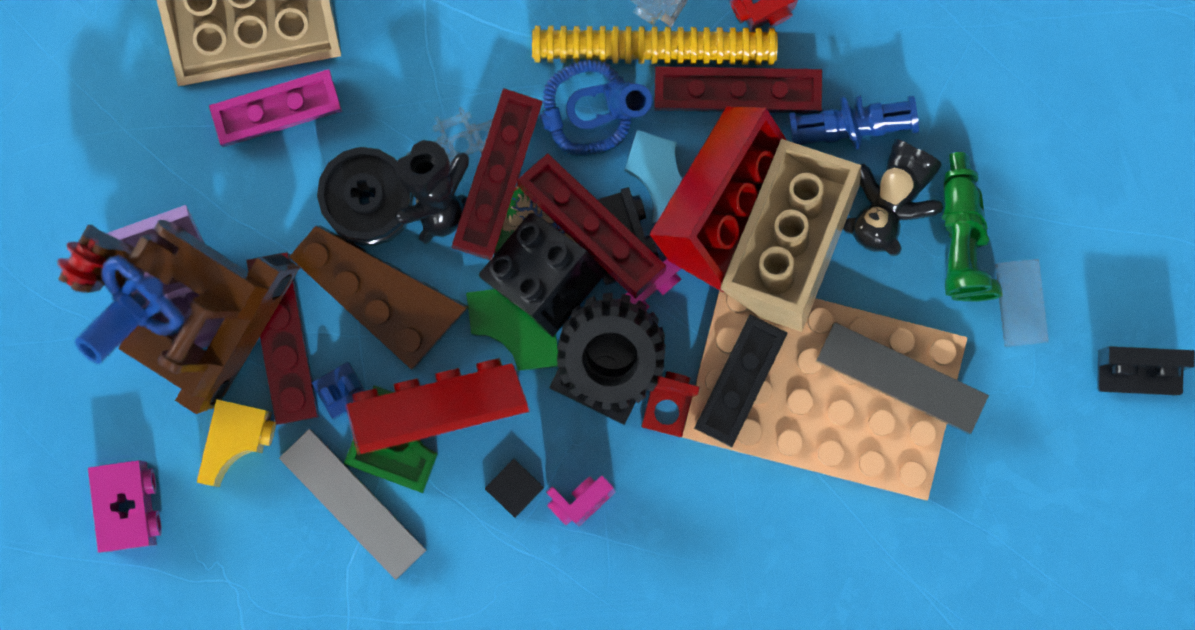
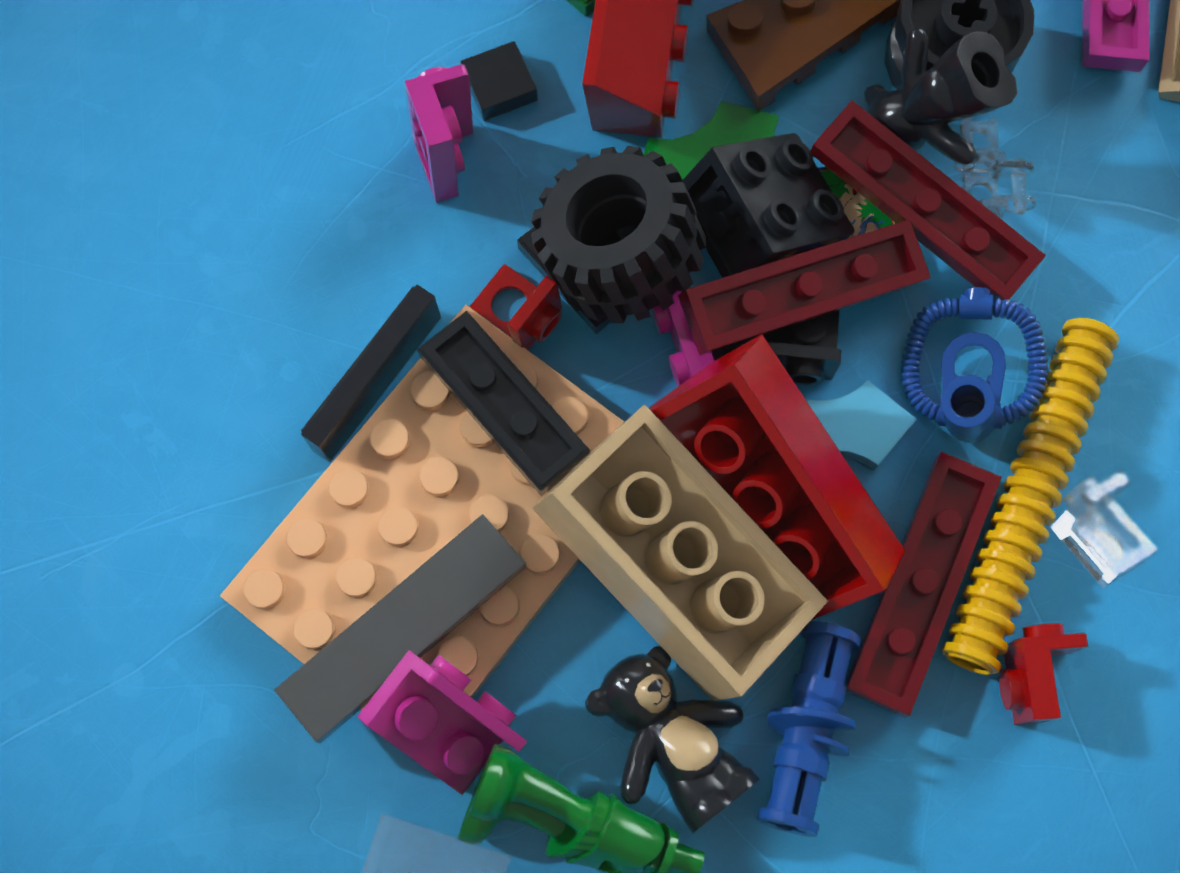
camera: 115 degrees right, 10 degrees down
(753, 473) = (371, 373): none -> black tile
(945, 331) = (436, 722): none -> dark pink bracket

